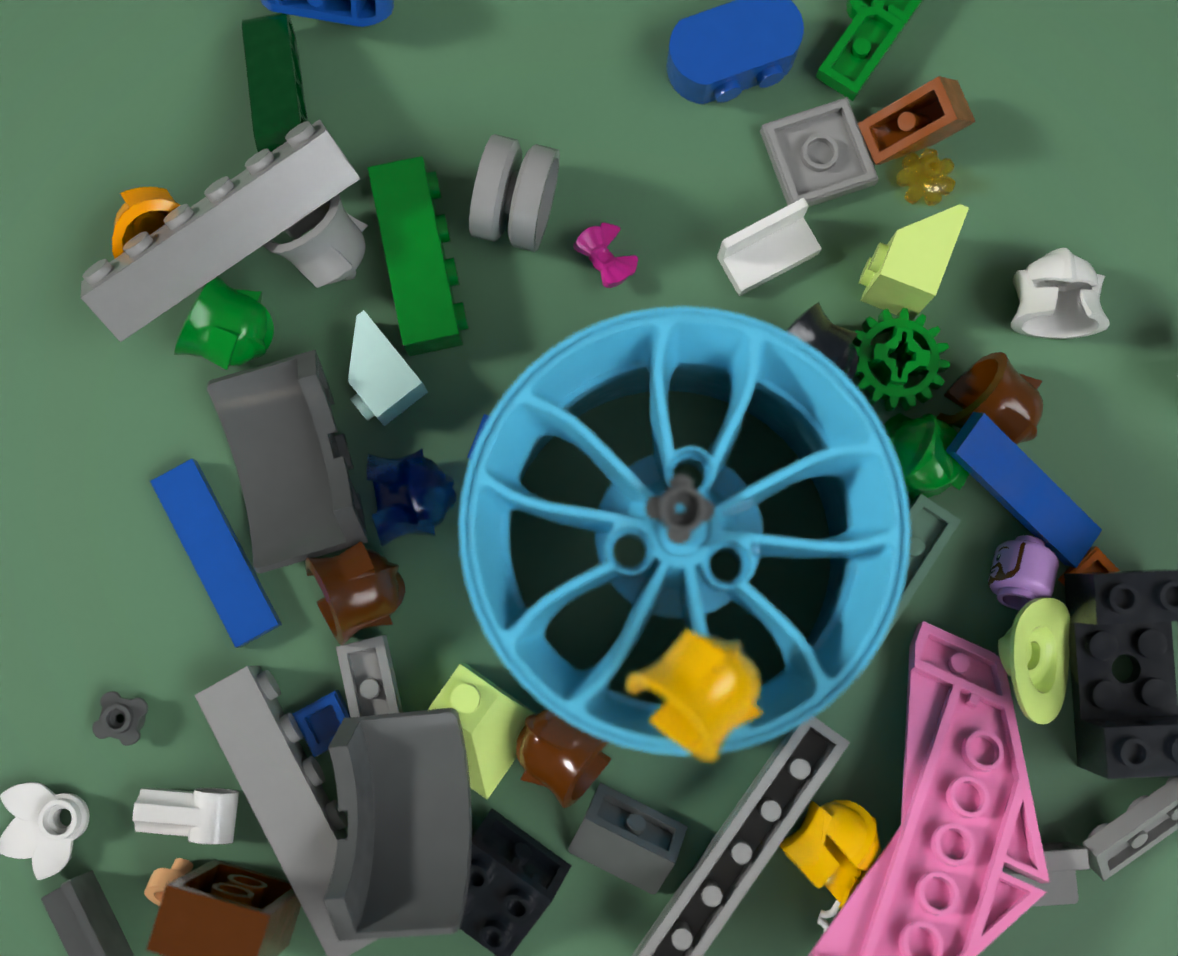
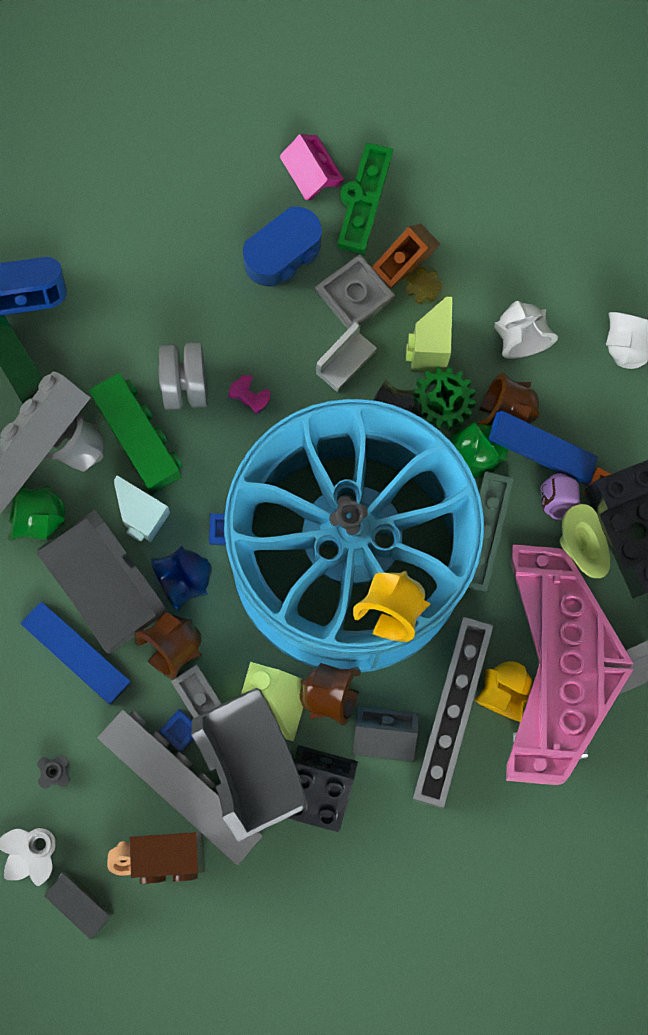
camera: 25 degrees left, 5 degrees down
(200, 814) = (123, 811): white piece -> none

